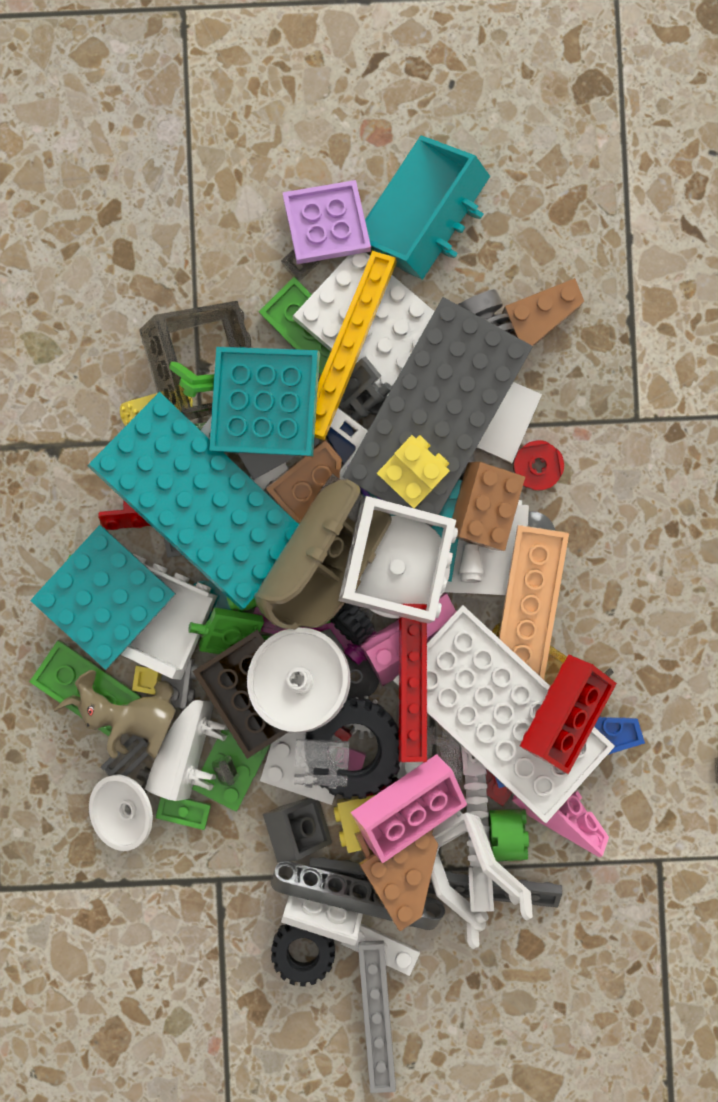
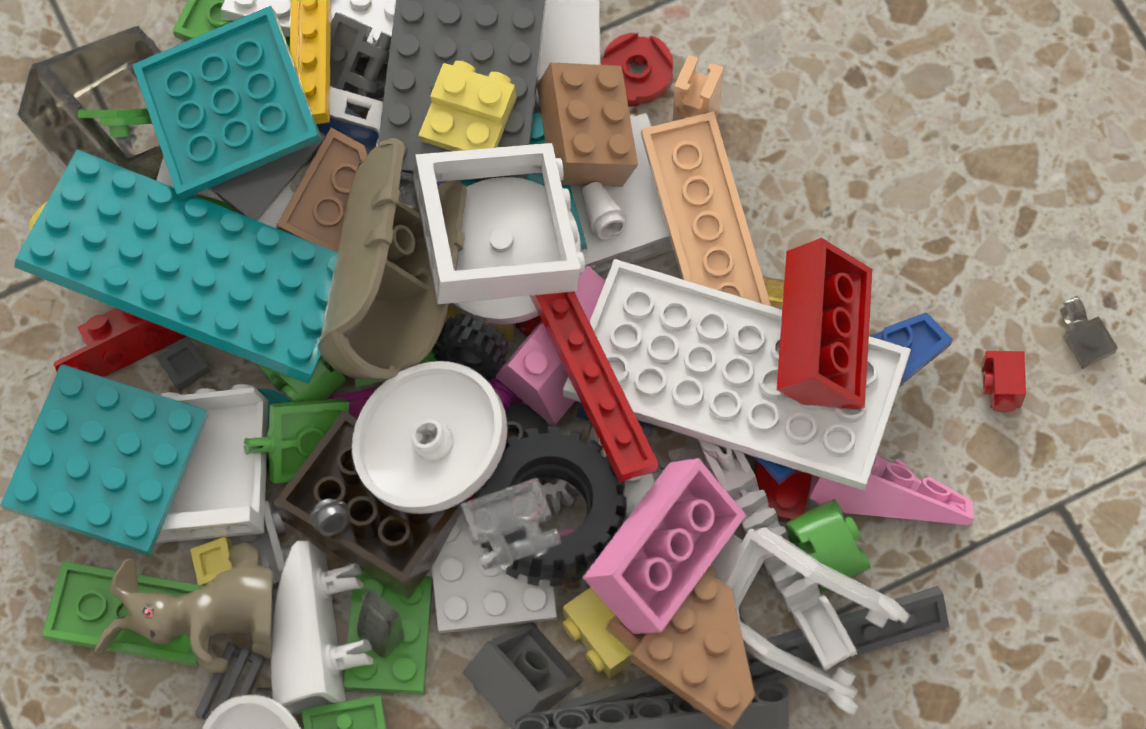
camera: 20 degrees left, 20 degrees down
(219, 700) = (330, 517): none -> flat silver plate
(565, 512) = (696, 92): none -> light nougat piece
(664, 775) = (1004, 379): none -> red brick

